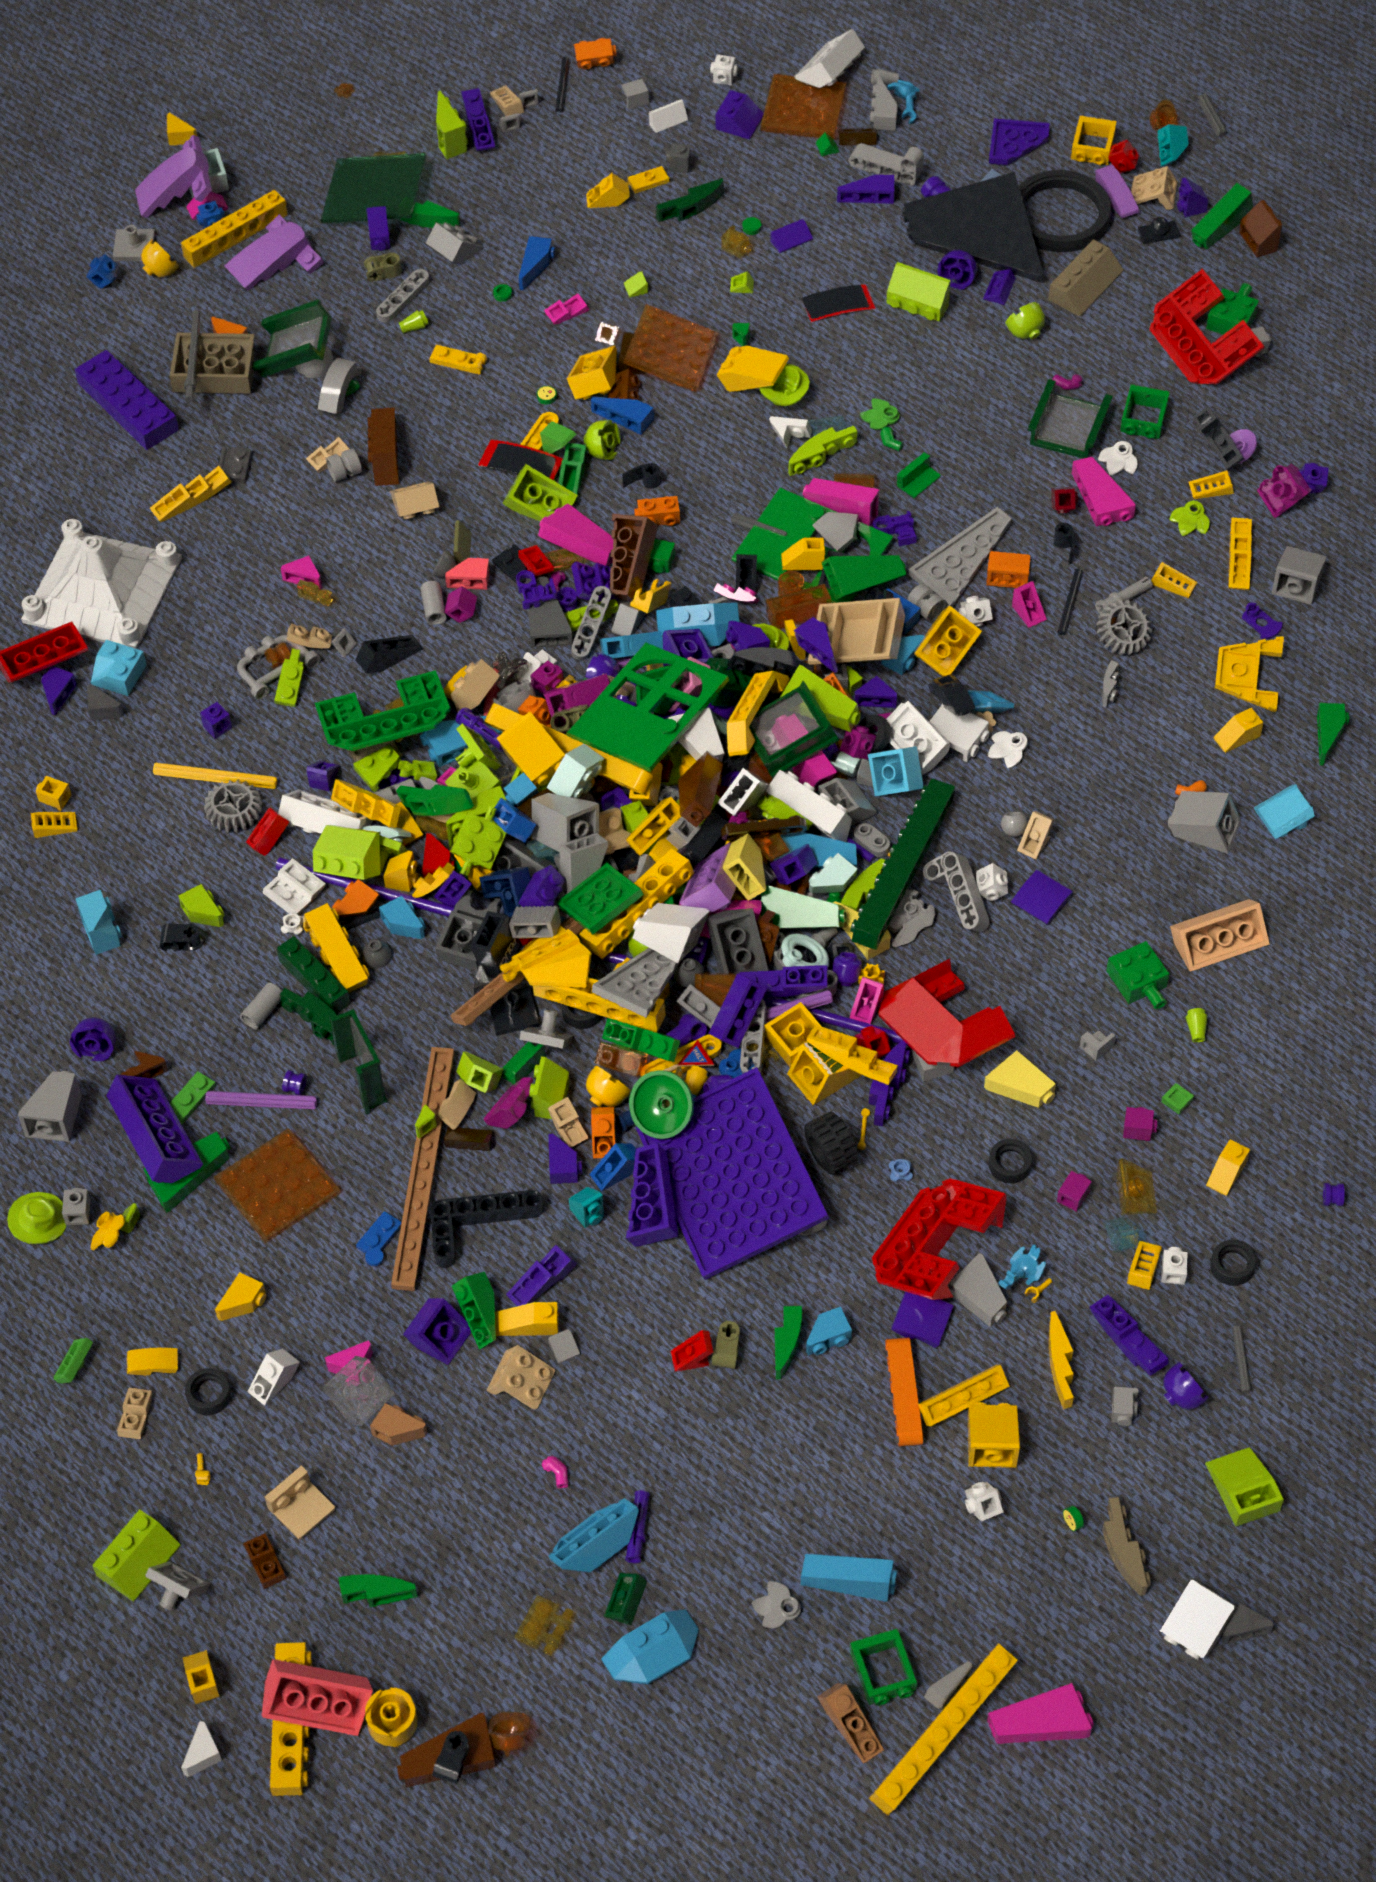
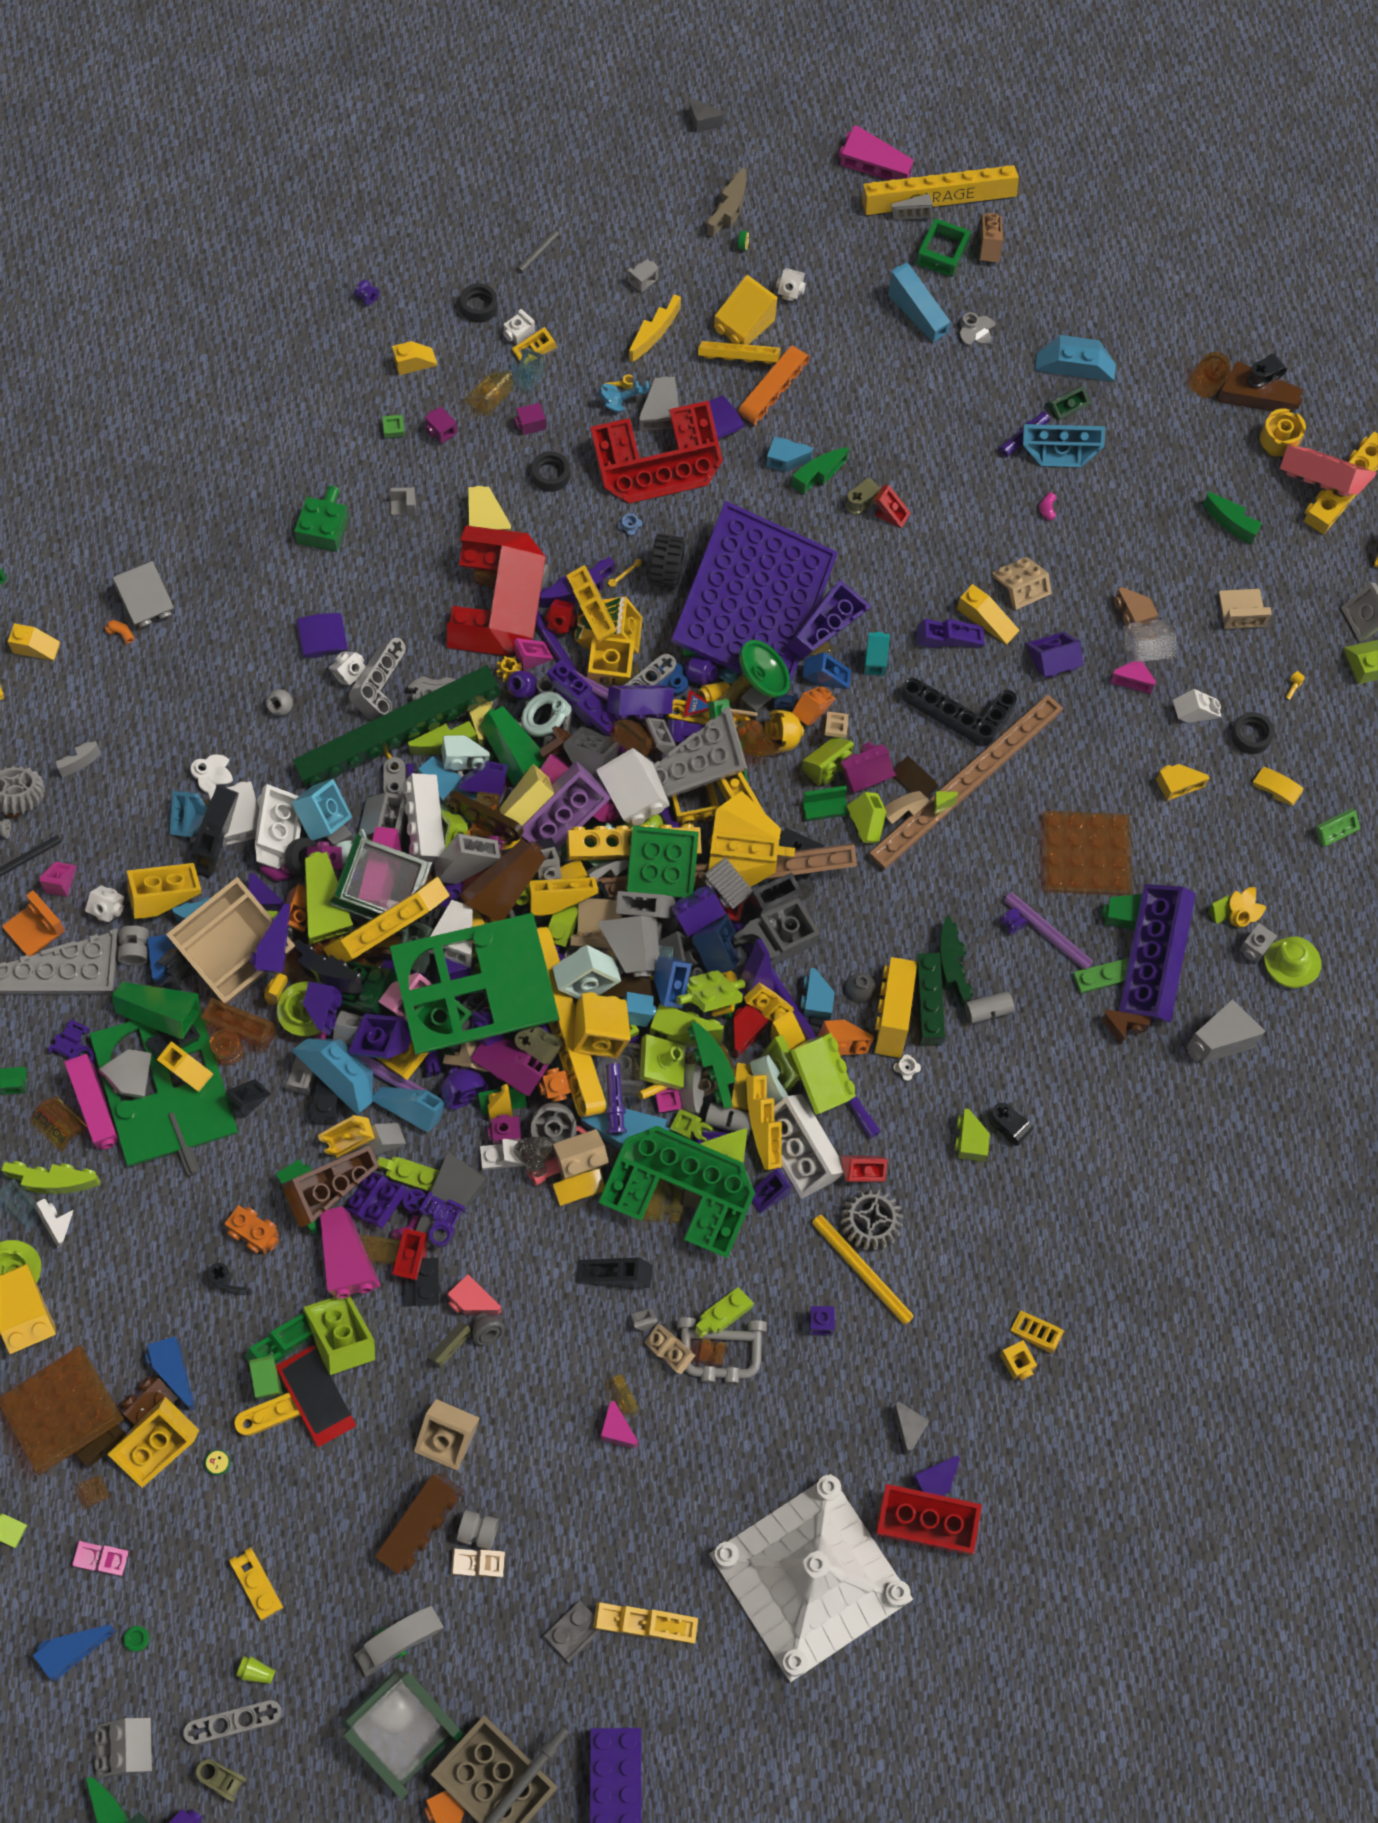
camera: 145 degrees left, 10 degrees up
(92, 1036) = (1146, 1080): dark purple cylinder -> none
(98, 920) = (1072, 1183): medium azure slope -> none
(118, 667) = (866, 1456): medium azure slope -> none
(134, 1413) = (1316, 759): tan slope -> none
(264, 1561) = (1293, 593): reddish brown slope -> none
(294, 887) = (881, 1097): white slope -> none
(350, 1042) = (956, 896): dark green piece -> none
(378, 1237) = (1043, 755): blue hinge -> none
(433, 602) = (531, 1295): light grey pin -> none
(460, 604) = (511, 1269): magenta brick -> none
(477, 749) = (642, 1068): lime tile -> none
(478, 1307) = (1013, 646): green slope -> none
(537, 1622) = (1138, 428): clear yellow plate -> none
(546, 1034) = (795, 801): light grey tile -> none
(562, 1162) = (864, 704): dark purple slope -> none
(563, 1346) = (973, 578): light grey slope -> none
(588, 622) = (422, 1156): light grey beam -> none
(600, 436) = (225, 1352): lime cylinder -> none
(741, 595) = (272, 1079): slope -> none
(1035, 835) = (274, 678): tan slope -> none
(1127, 1336) = (595, 307): dark purple slope -> none
(1182, 1388) = (597, 253): dark purple cylinder -> none
(1197, 1023) = (320, 464): lime cone -> none
(1198, 1620) = (725, 135): white slope -> none
(1220, 934) = (231, 509): light nougat slope -> none
(1245, 1486) = (620, 179): lime slope -> none
(1285, 812) = (77, 559): medium azure slope -> none

